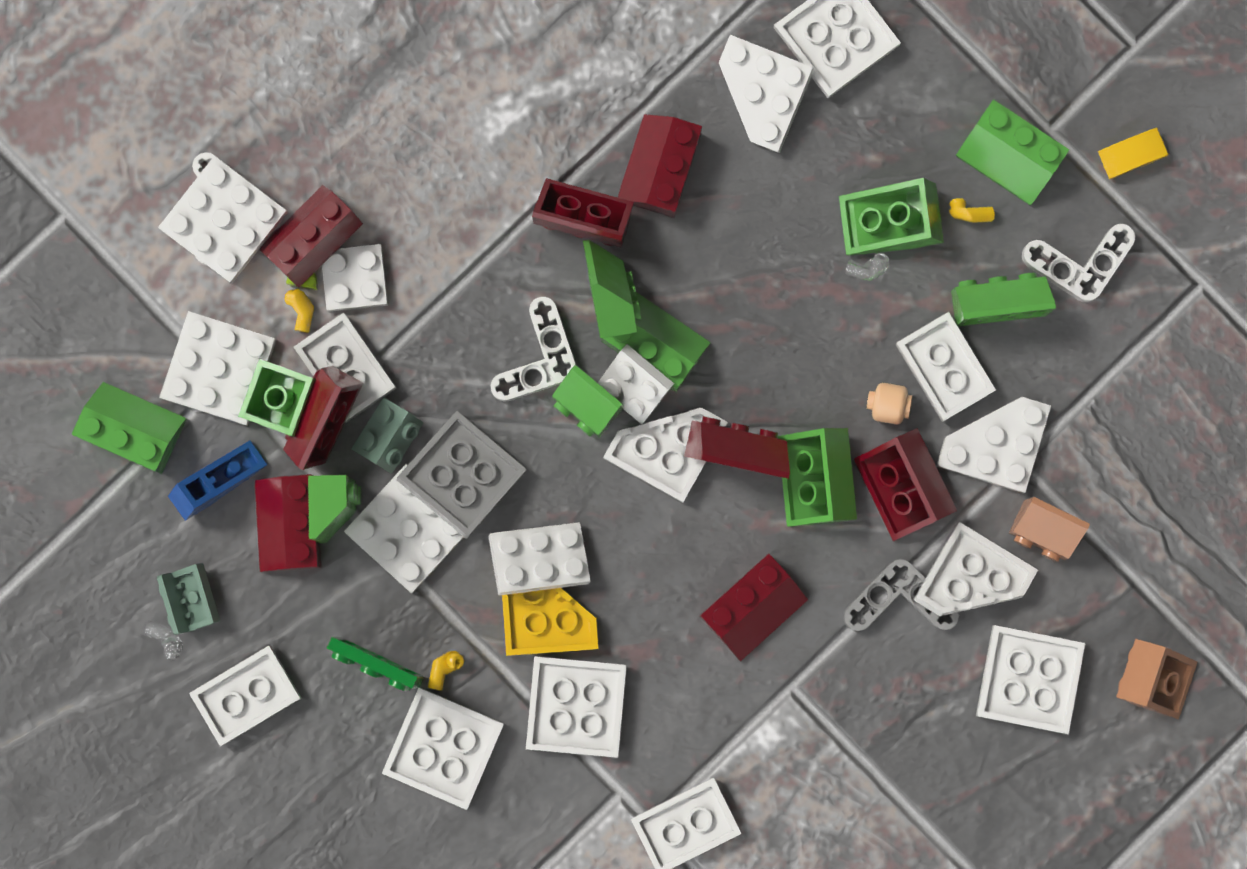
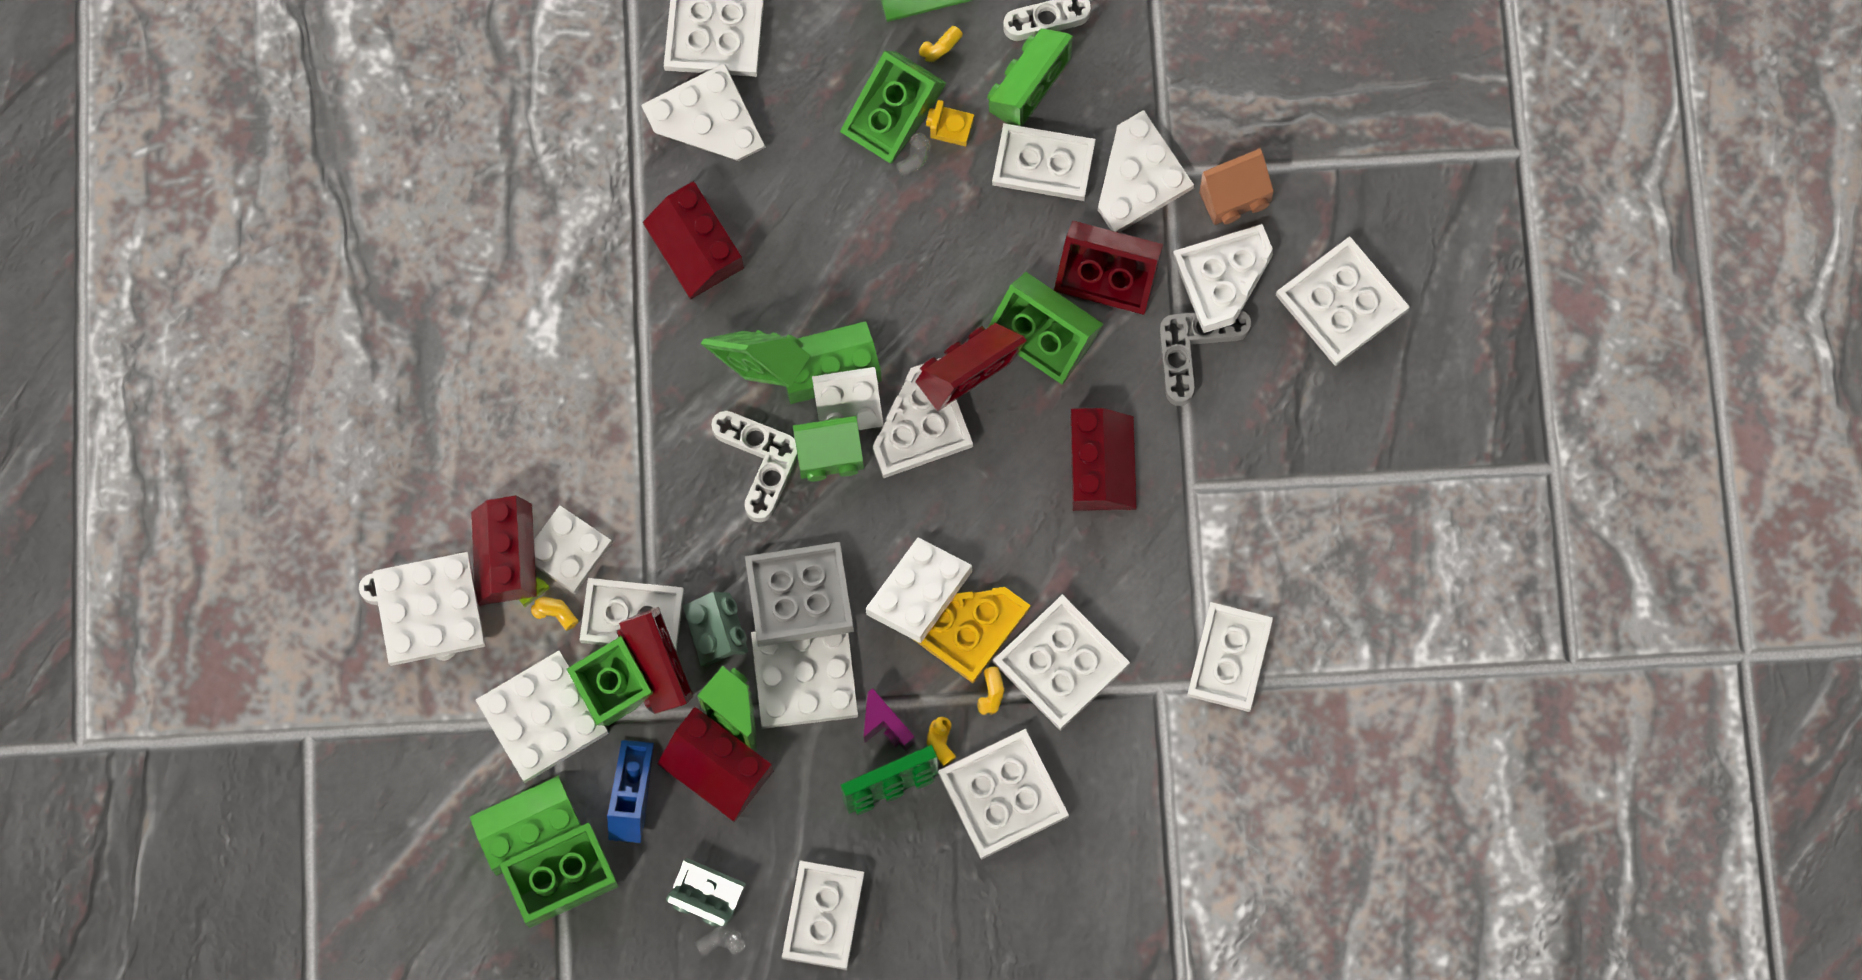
camera: 45 degrees left, 10 degrees down
(109, 485) = (558, 875): none -> bright green slope
(424, 609) = (879, 716): none -> magenta slope
(514, 677) = (995, 692): none -> yellow arm
(582, 213) = (679, 328): dark red slope -> none
(889, 403) = (1035, 225): light nougat head -> none
(914, 272) = (949, 124): none -> yellow bracket
(1156, 678) = (1423, 207): nougat slope -> none

